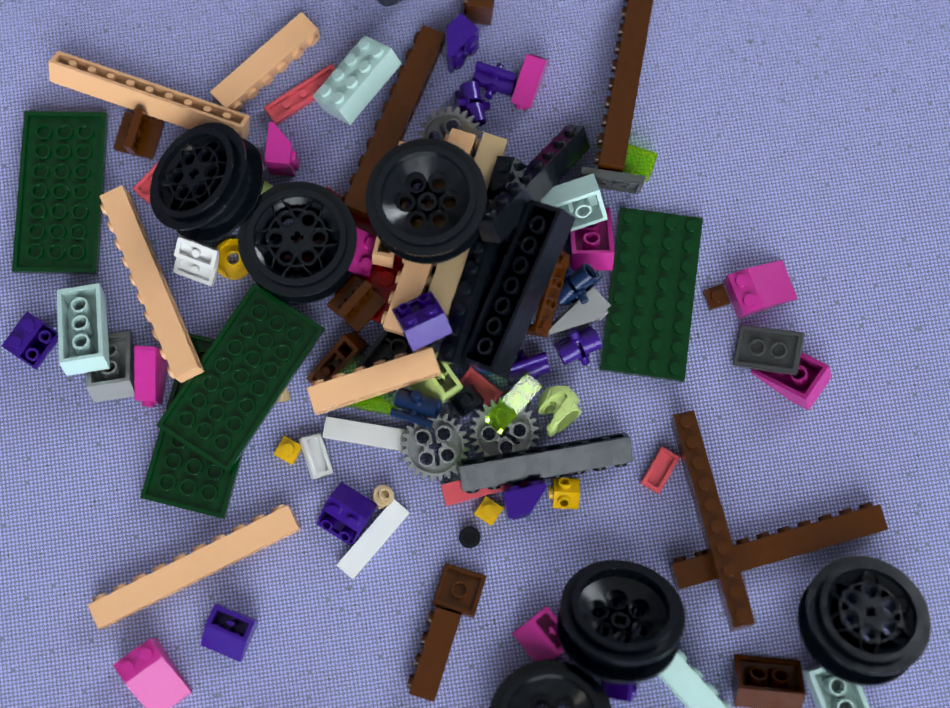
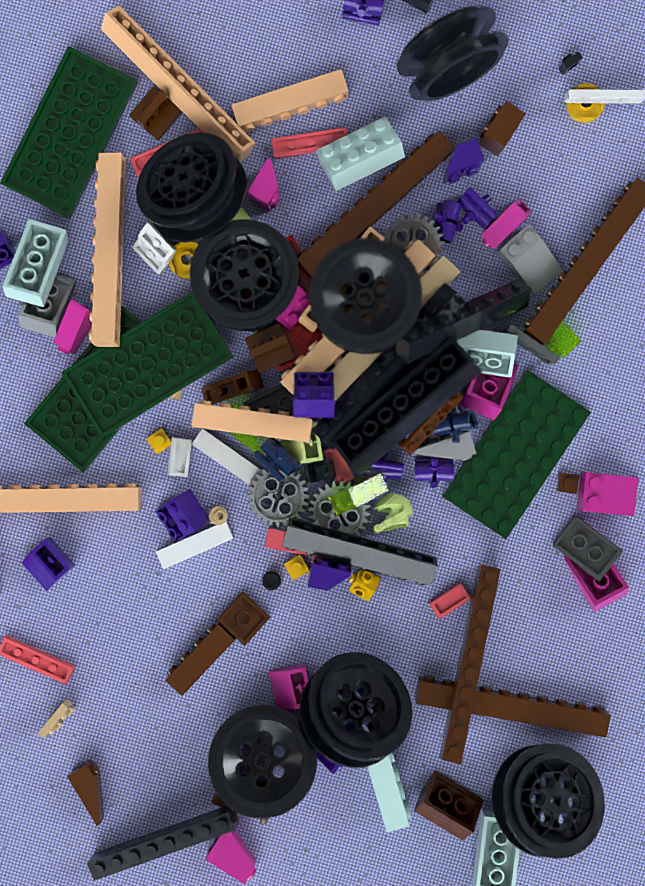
camera: 25 degrees right, 10 degrees up
(569, 102) = (530, 259): none -> light grey slope

